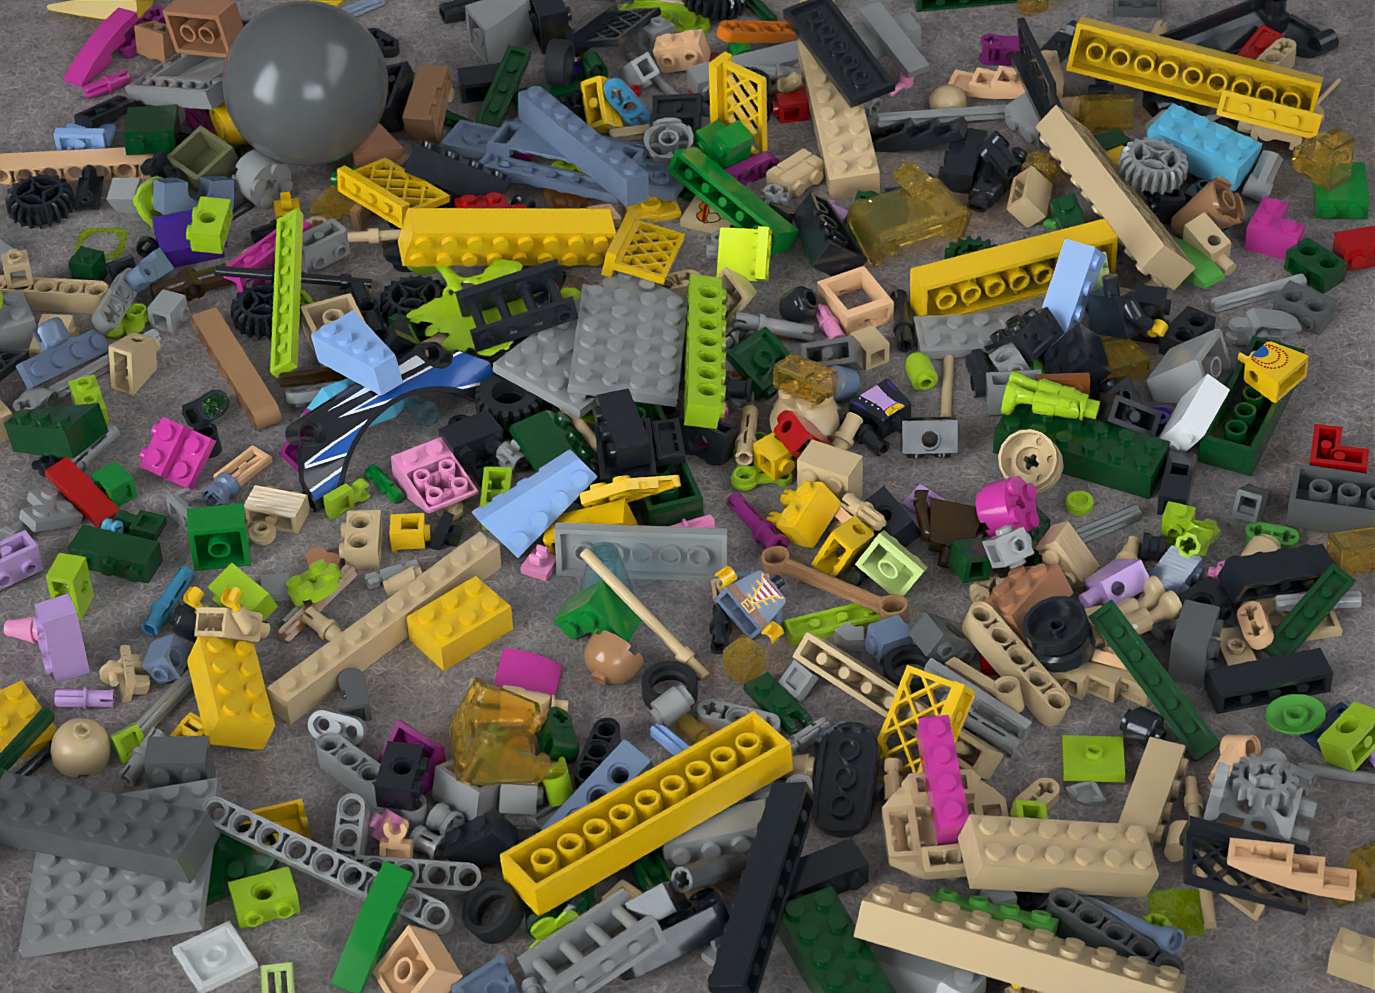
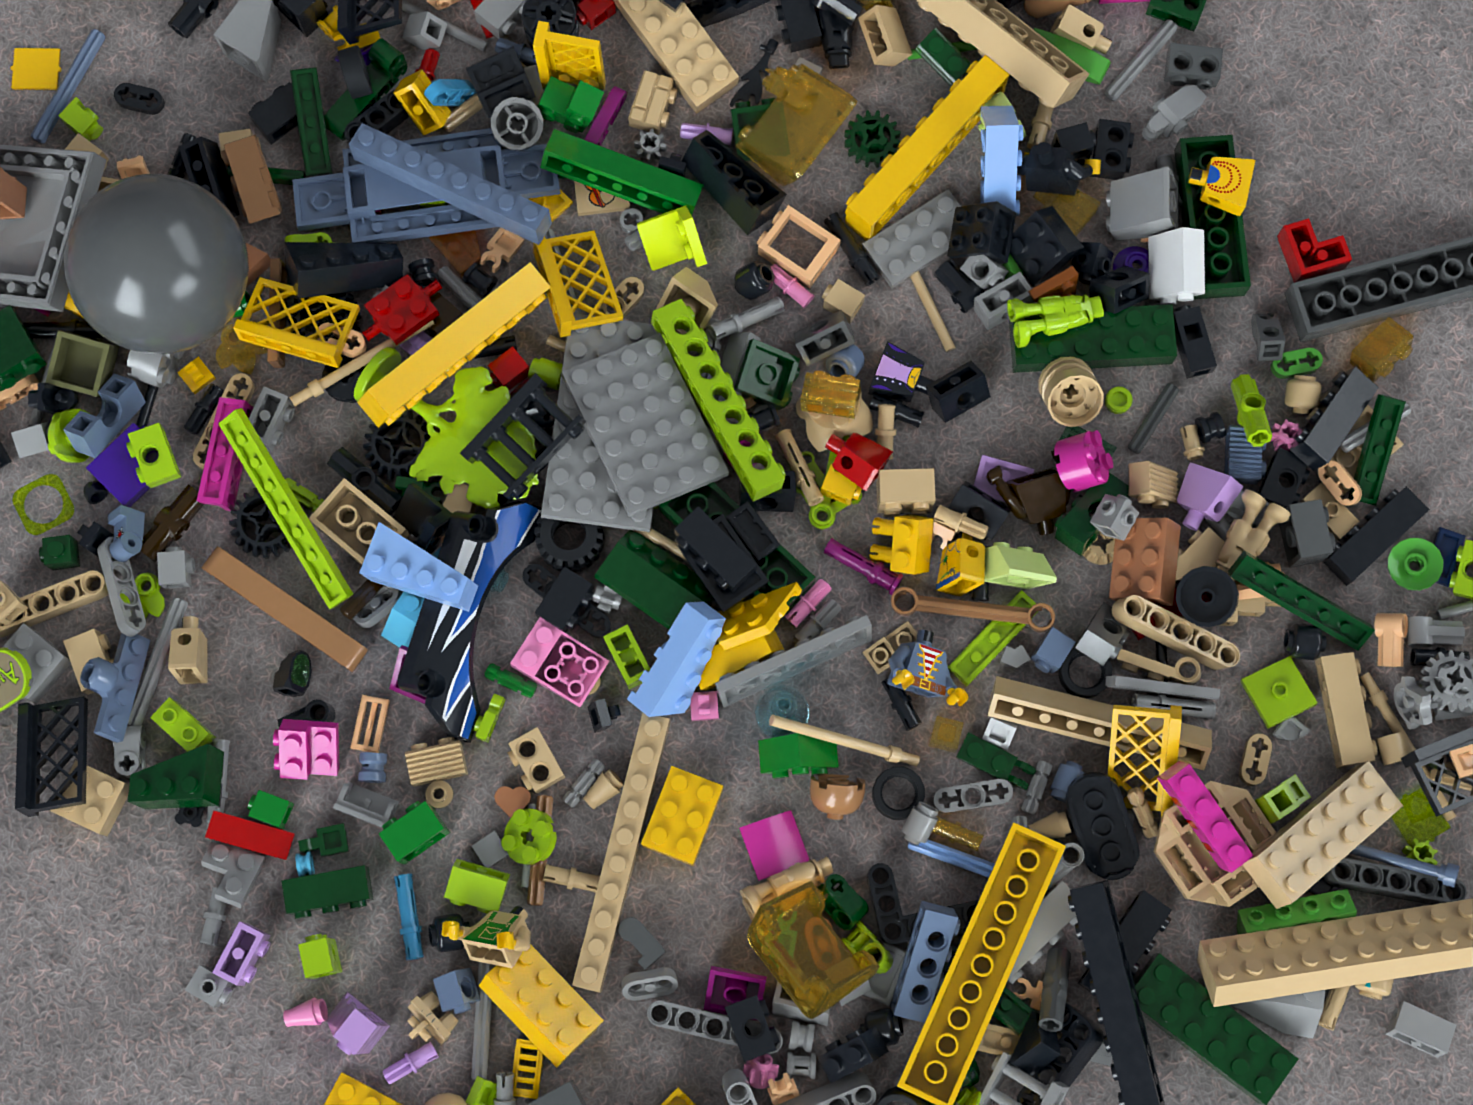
camera: 30 degrees left, 35 degrees up
(343, 281) = (313, 448): black bar -> none
(408, 531) = (562, 728): yellow brick -> none
(921, 371) = (904, 309): lime brick -> none
(1176, 520) = (1218, 393): lime brick -> none

